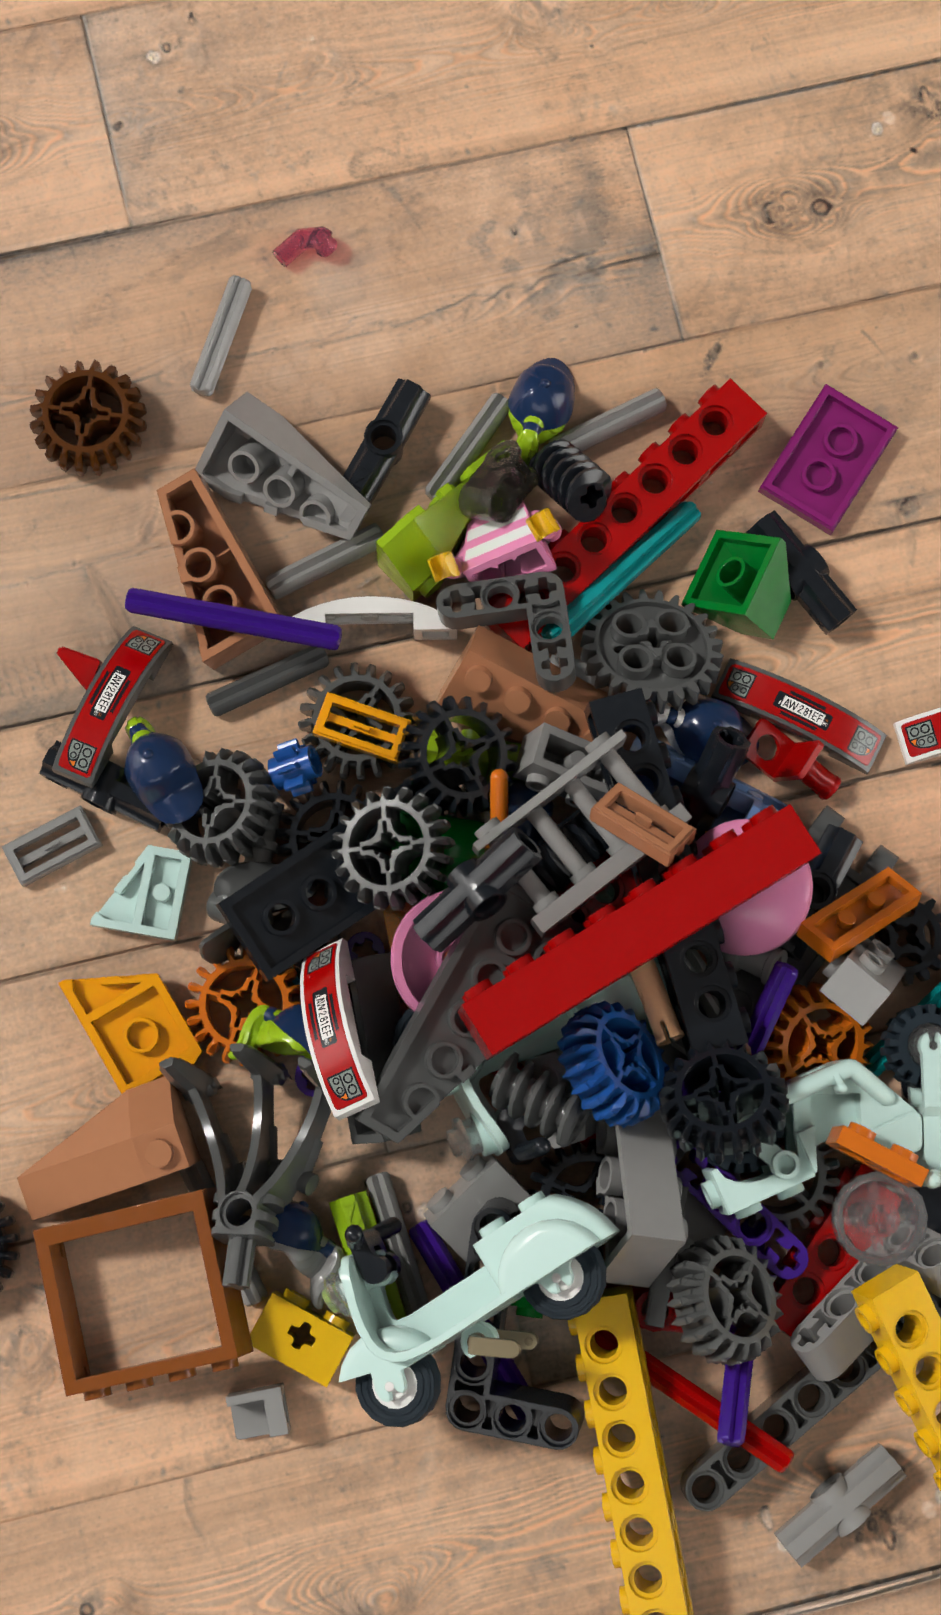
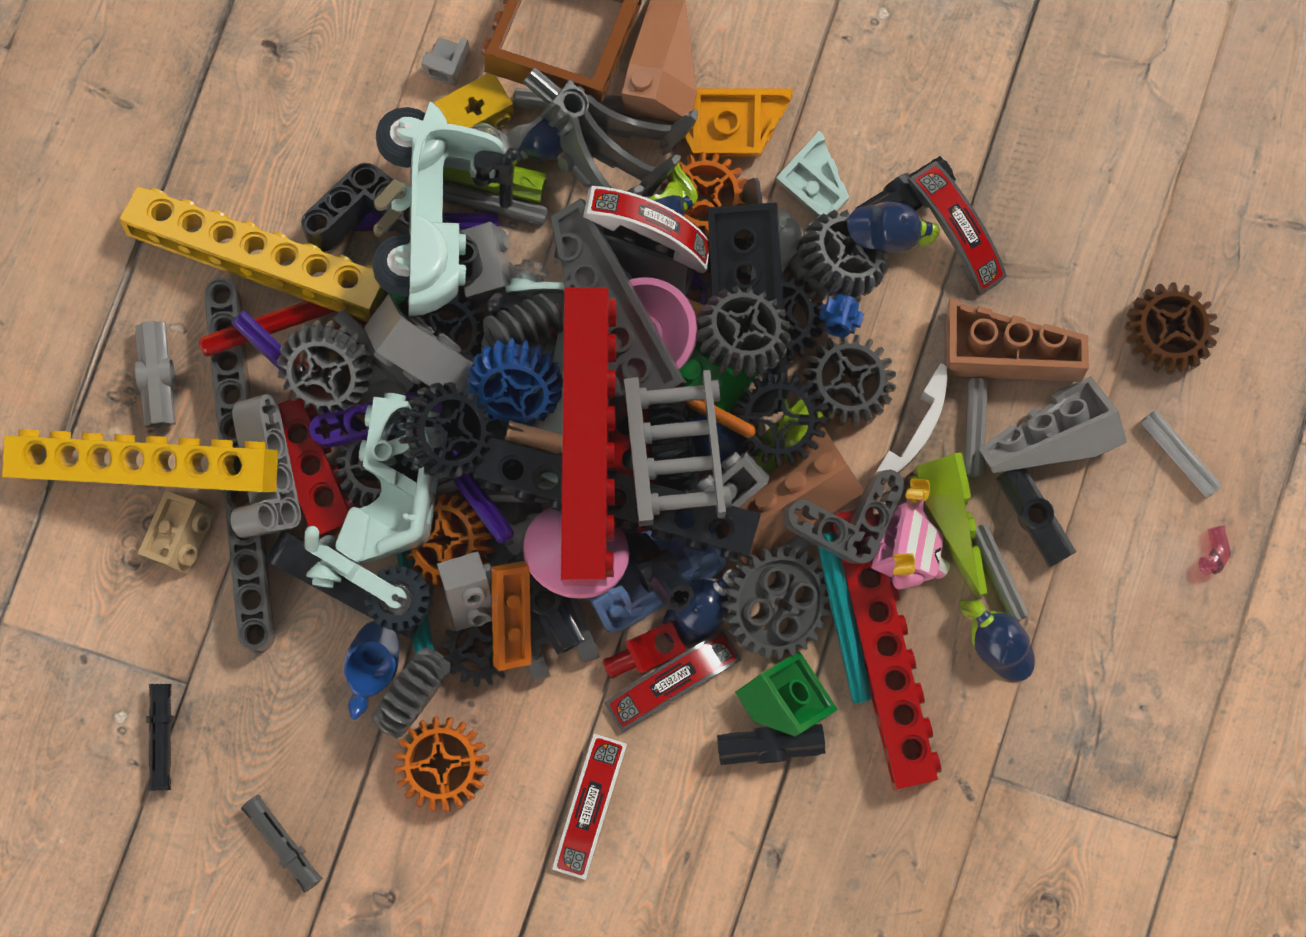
camera: 125 degrees right, 0 degrees up
(59, 861) = (886, 167): light grey tile -> none
(80, 664) = (998, 222): red slope -> none
(233, 619) = (965, 331): dark purple axle -> none
(267, 680) = (915, 341): dark grey axle -> none
(354, 743) = (864, 355): light orange tile -> none
(477, 889) = (679, 356): black piece -> none
(498, 486) = (953, 565): clear smoke piece -> none
(572, 480) = (929, 620): black piece -> none
(615, 420) = (958, 680): light grey axle -> none
(638, 828) = (625, 491): nougat tile -> none
(828, 459) = (841, 821): magenta tile -> none
(878, 1219) = (310, 495): clear cylinder -> none
(895, 1163) = (336, 518): orange plate -> none

